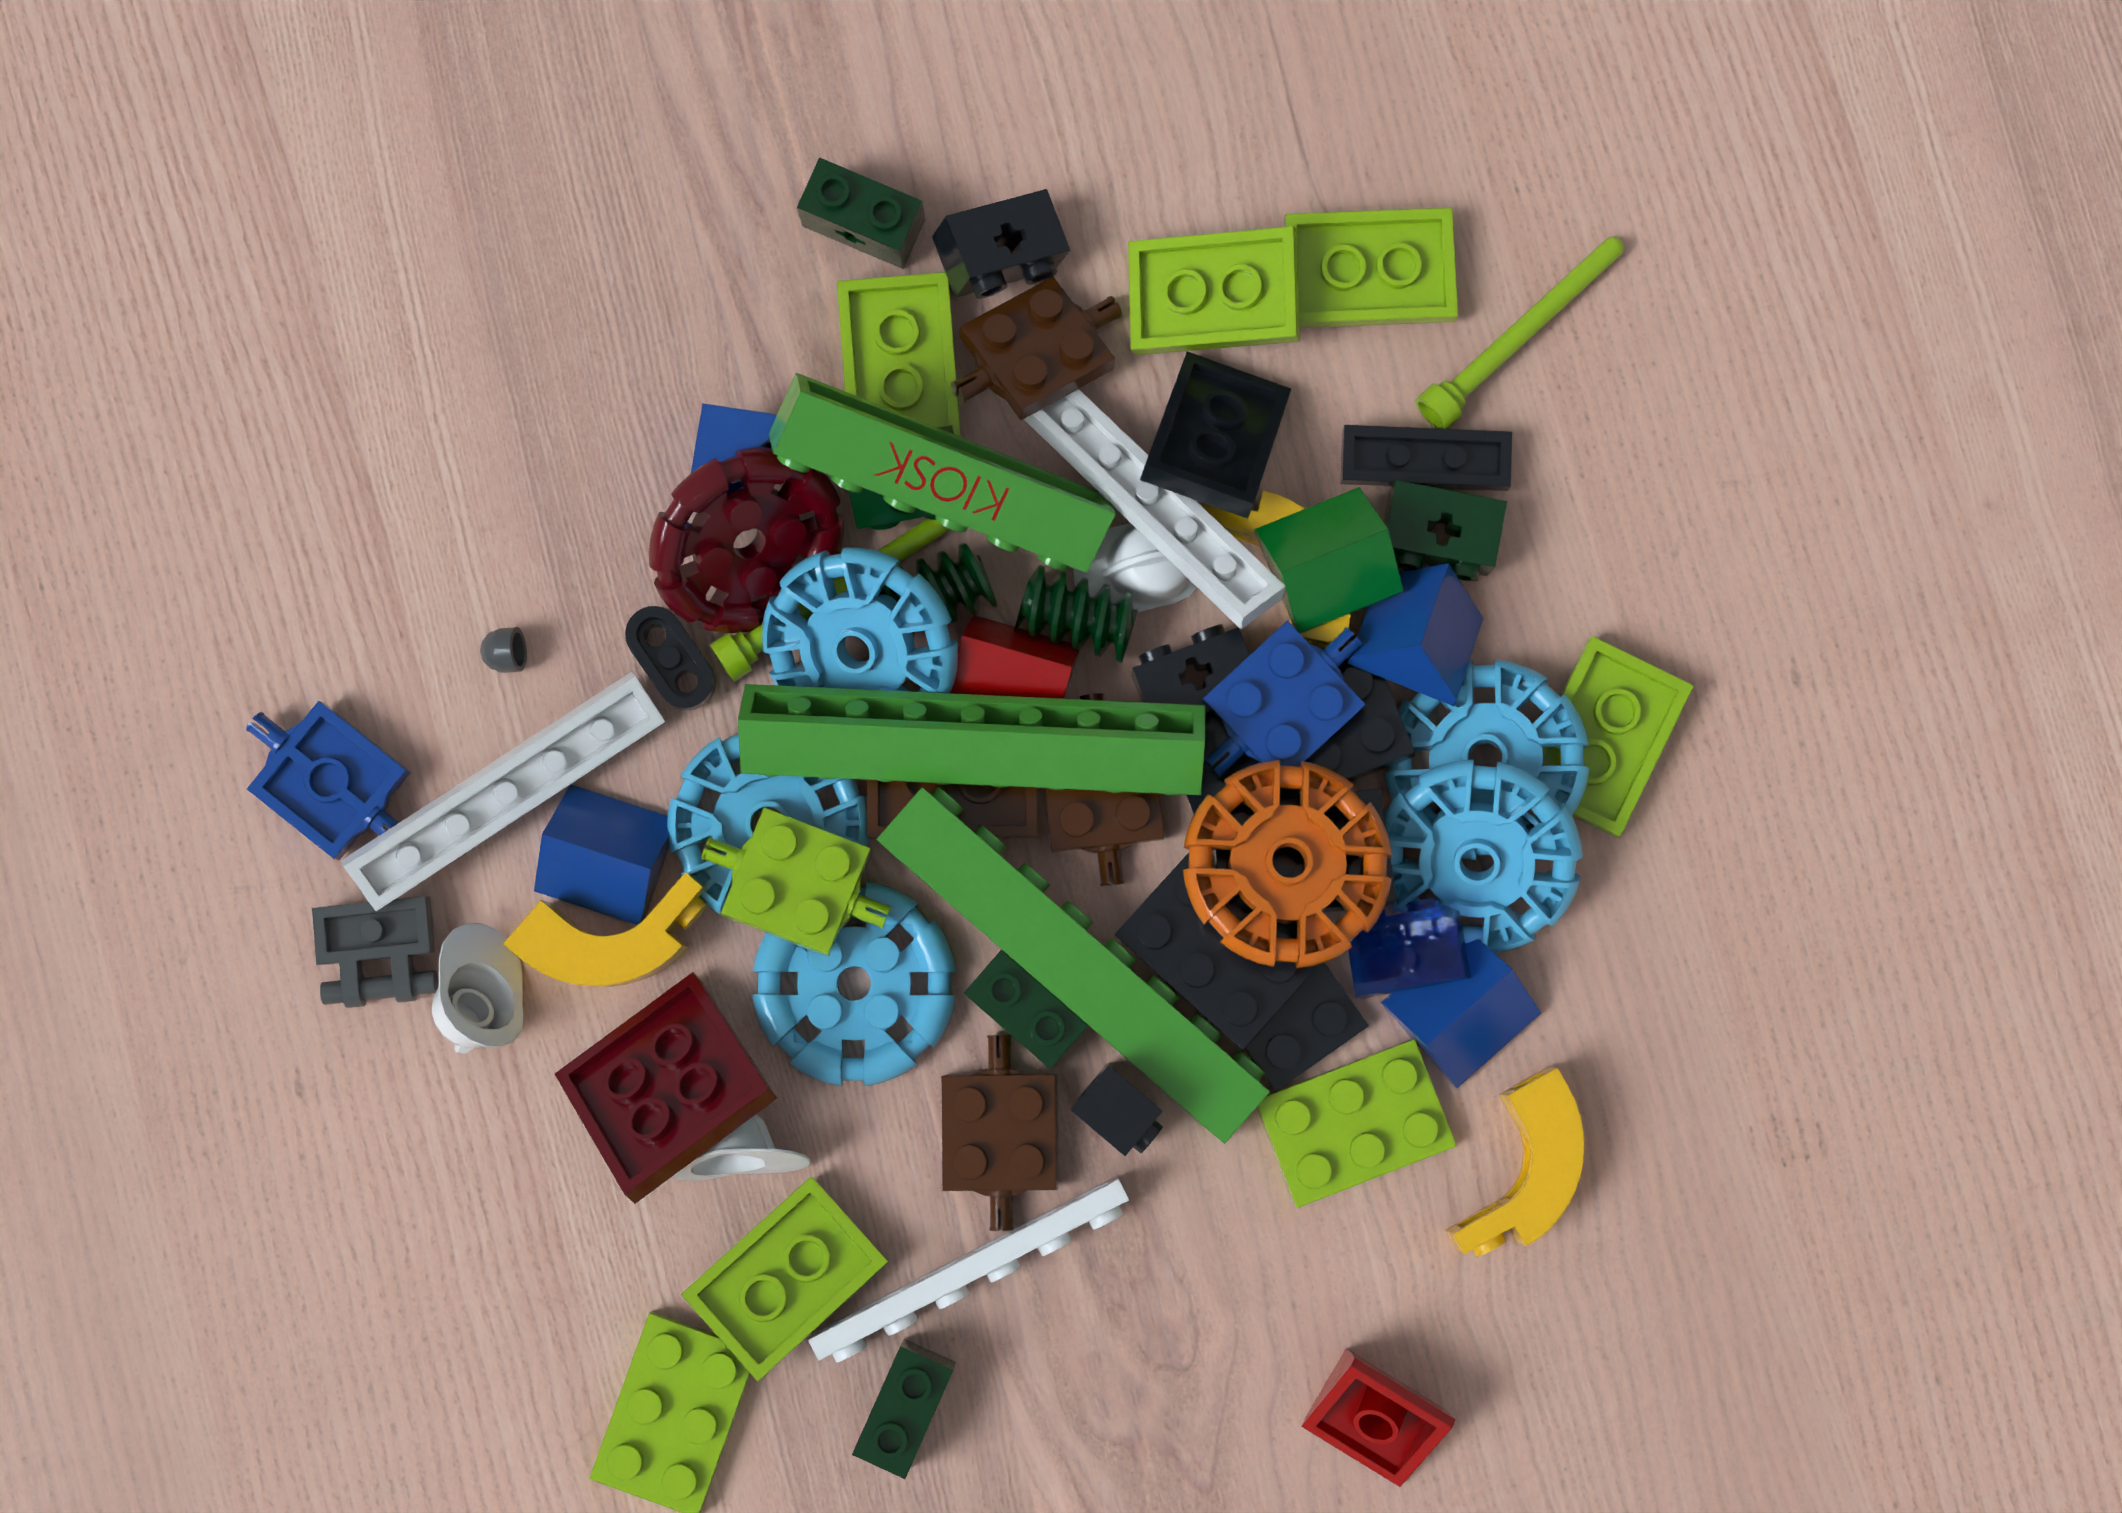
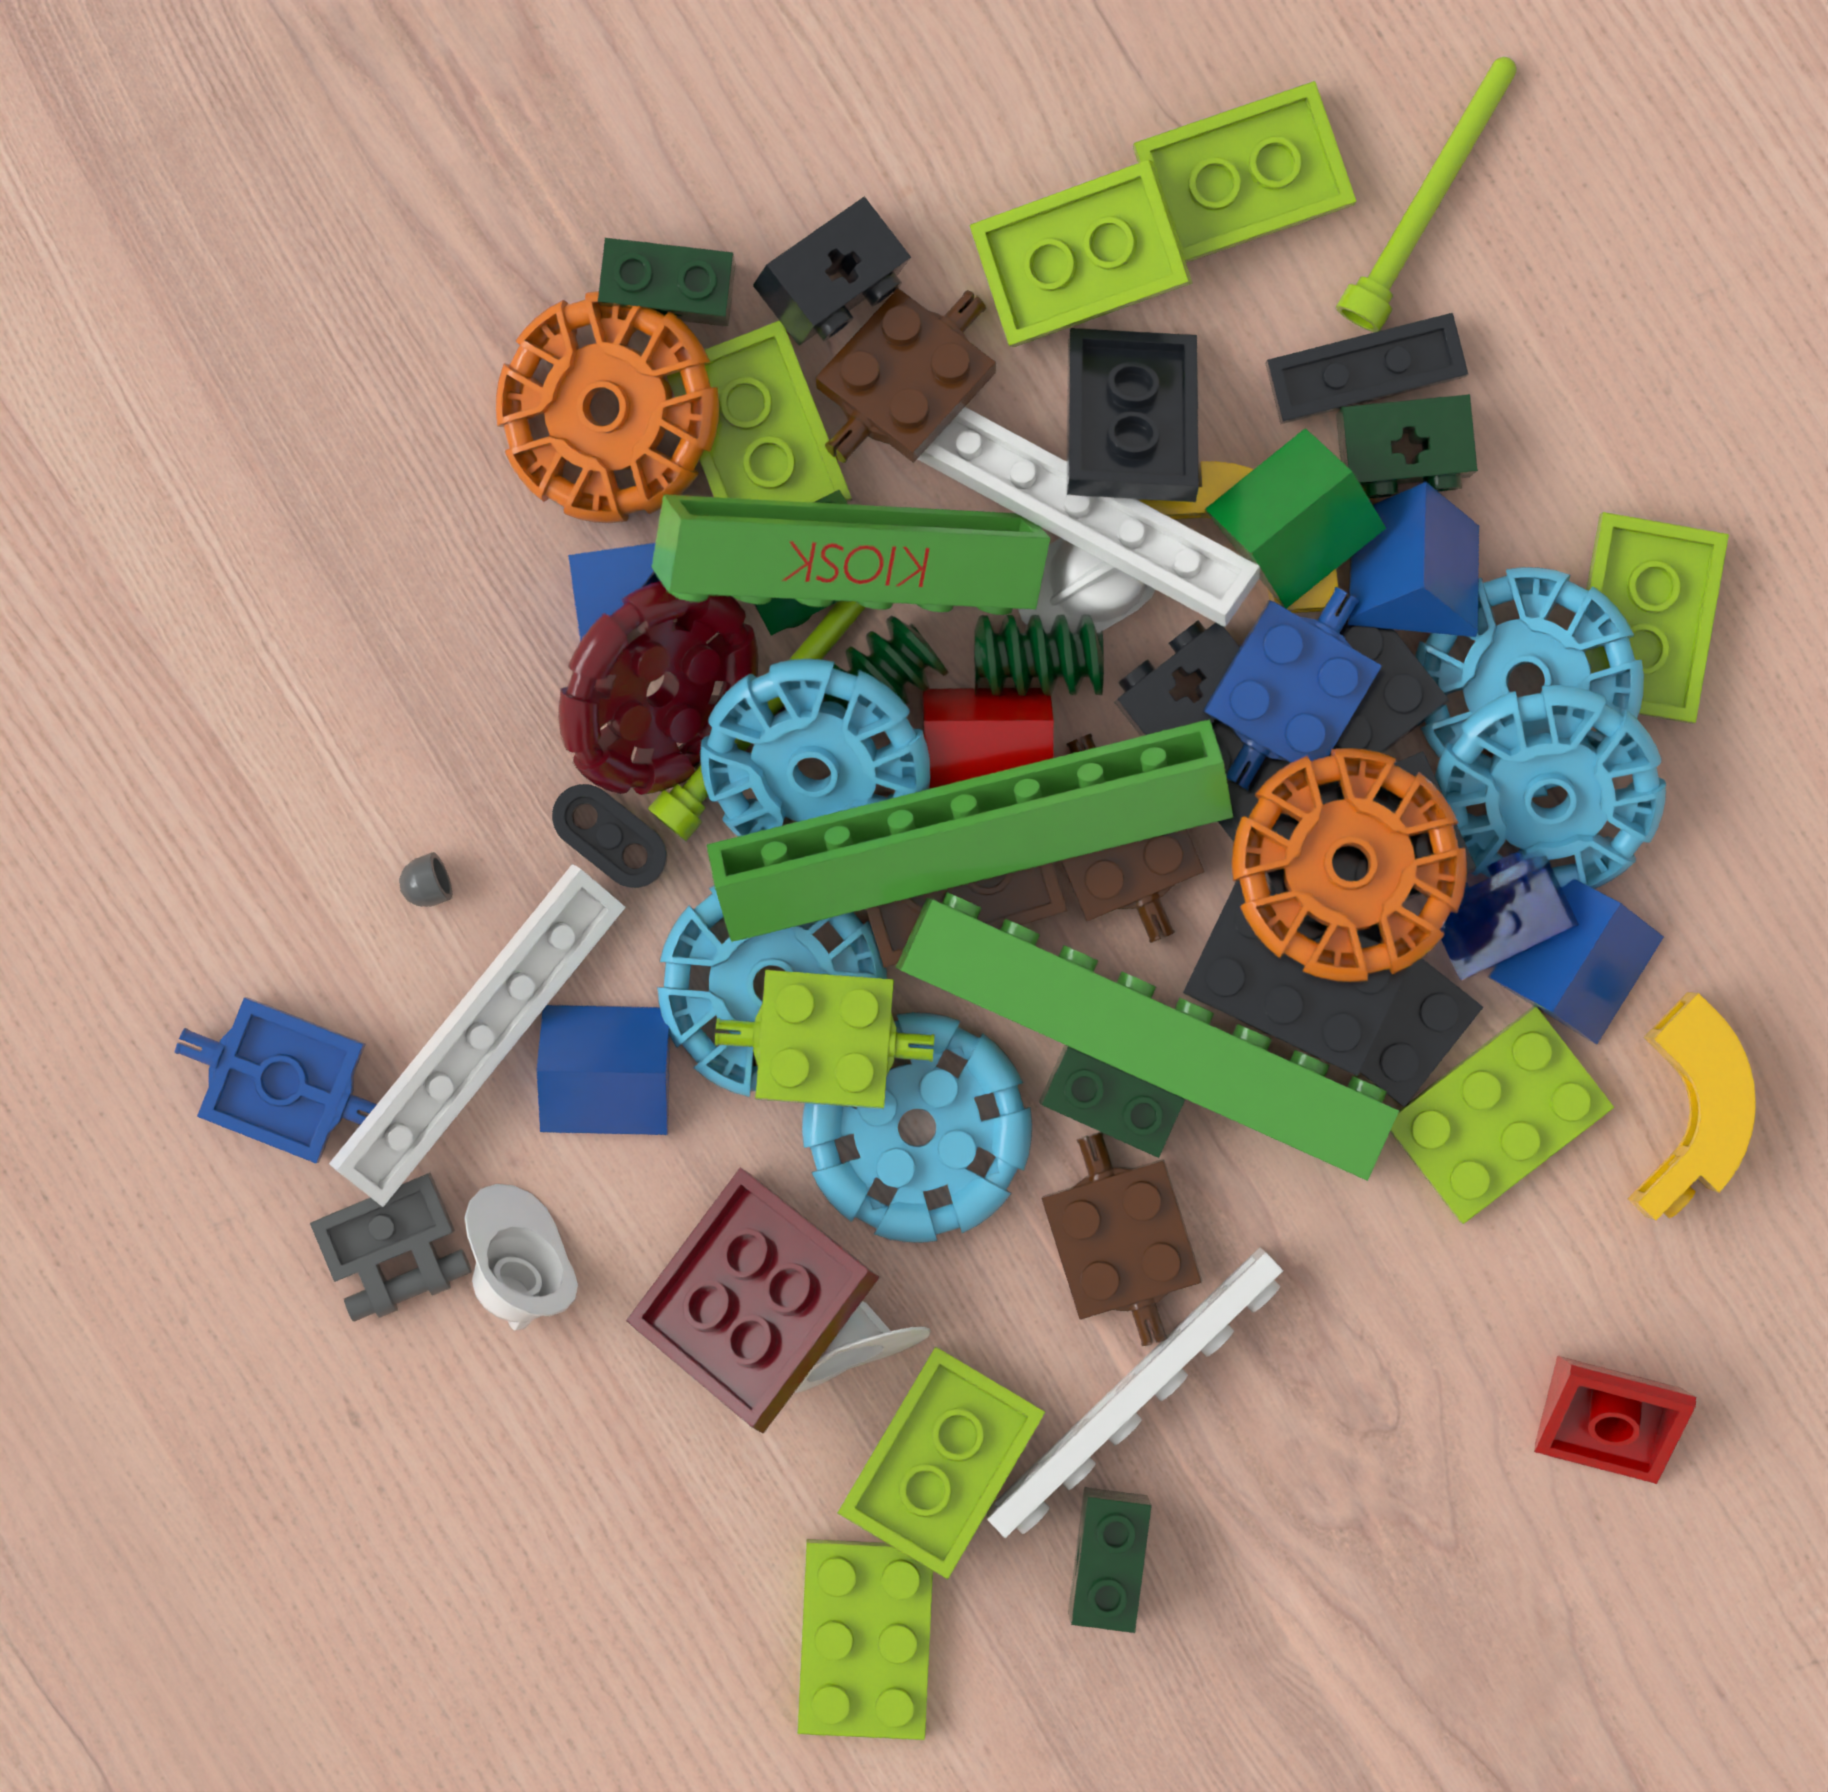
camera: 10 degrees left, 5 degrees up
(574, 956) = (624, 1189): yellow arch -> none
(810, 306) = (642, 417): none -> orange plate
(1118, 1112) = (1244, 1180): black brick -> none

